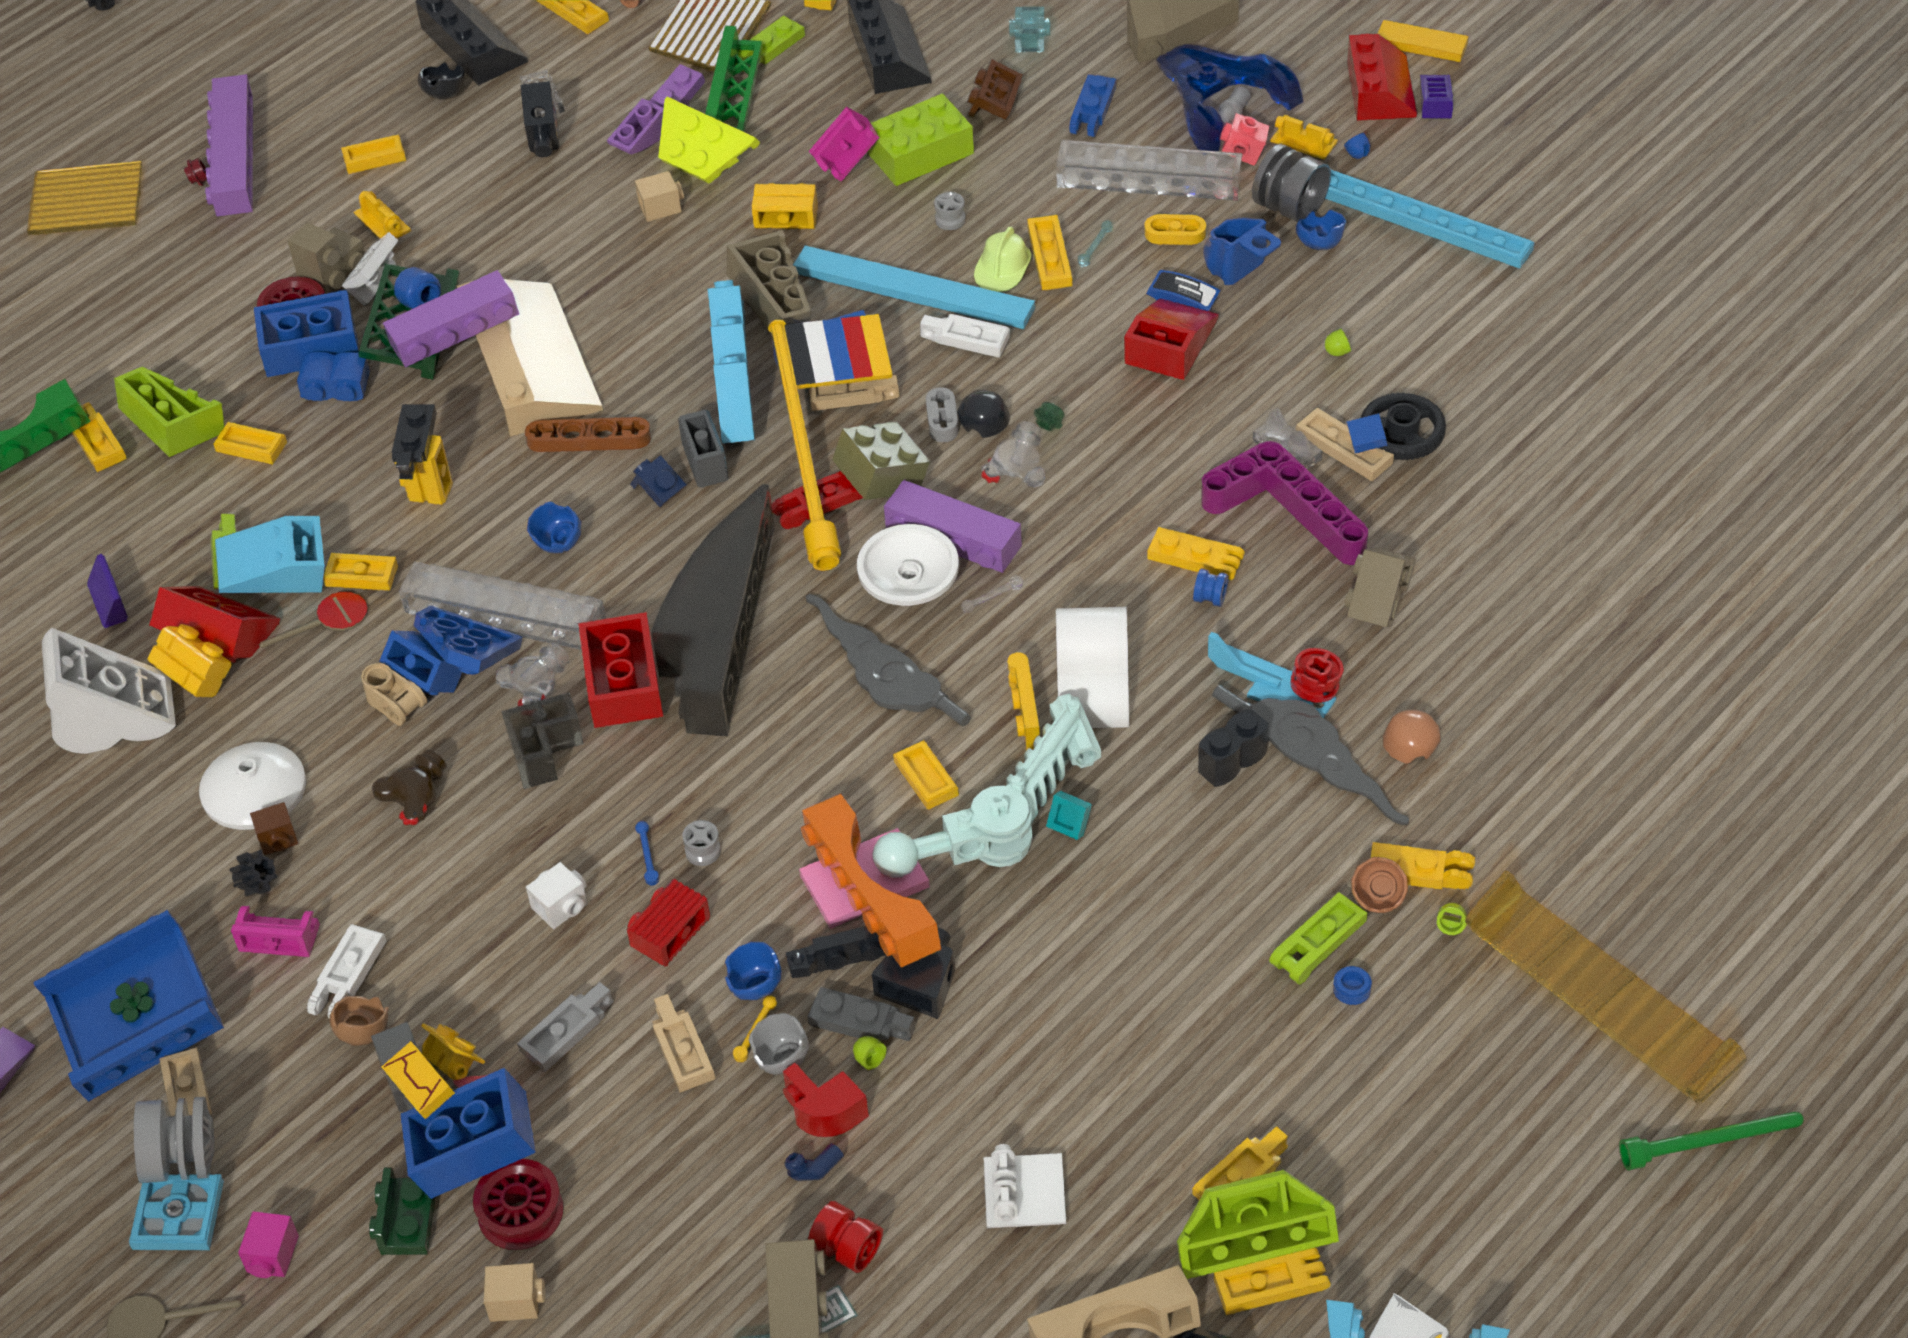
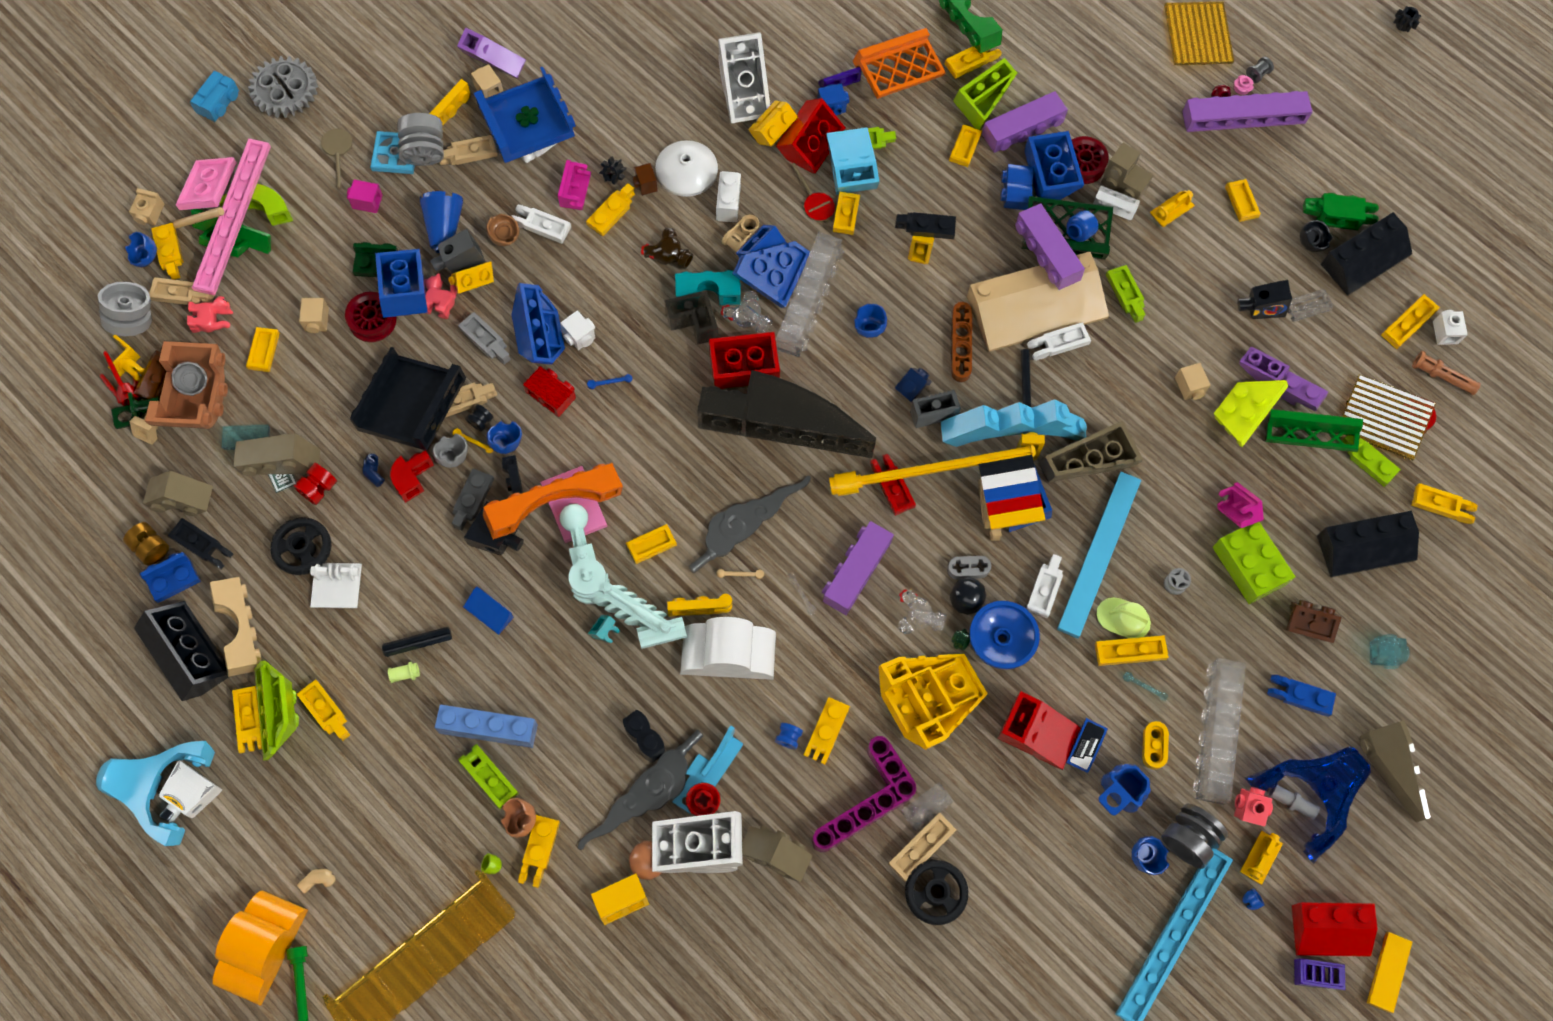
camera: 85 degrees right, 20 degrees up
(44, 1080) = (487, 81): none -> tan brick
(72, 523) = (889, 50): none -> orange fence
(90, 1135) = (452, 102): none -> yellow plate
(143, 594) = (834, 97): none -> blue brick
(167, 135) = (1263, 67): none -> dark grey bush
(183, 150) = (1245, 88): none -> bright pink plate
(221, 371) = (1024, 122): none -> medium lavender brick
(320, 714) = (728, 196): none -> white brick
(327, 877) = (611, 210): none -> yellow hinge
(334, 1108) = (440, 216): none -> blue cone
(402, 58) = (1341, 211): none -> green hinge
(418, 1080) = (431, 253): yellow tile -> none
(485, 754) = (722, 283): none -> teal arch
(519, 259) = (1127, 292): none -> lime hinge
(554, 951) = (536, 325): none -> blue wedge
(591, 328) = (1060, 341): none -> white hinge
(658, 365) = (1026, 382): none -> black bar
(689, 1110) = (407, 400): none -> black panel
(705, 835) = (610, 405): light grey wheel -> none
(716, 1015) = (479, 417): none -> black wheel
(763, 352) = (1032, 438): none -> yellow plate
(784, 206) = (1182, 466): yellow brick -> none
(869, 1052) = (443, 501): lime hinge -> none
(879, 459) = (914, 521): olive piece -> none
(907, 564) = (818, 521): white dish -> none
(960, 1261) = (313, 529): none -> black wheel
(966, 645) = (759, 574): none -> tan hinge
(1043, 364) = (1012, 623): none -> blue dish
(1050, 969) = (488, 610): none -> blue slope
(1112, 1061) = (416, 641): none -> black axle
(1140, 441) = (930, 695): none -> yellow wedge
(1163, 1061) = (404, 672): none -> yellowish green pin
(1242, 943) = (486, 726): none -> medium blue brick
(1337, 343) = (1027, 855): lime hinge -> none
(1352, 985) = (452, 794): blue tile -> none
(1366, 433) = (921, 861): blue tile -> none
(1385, 643) = (698, 844): none -> white brick
(1476, 756) = (620, 899): none -> yellow hinge
(1510, 1146) = (316, 877): none -> tan arm
(1636, 1196) = (256, 946): none -> light orange brick

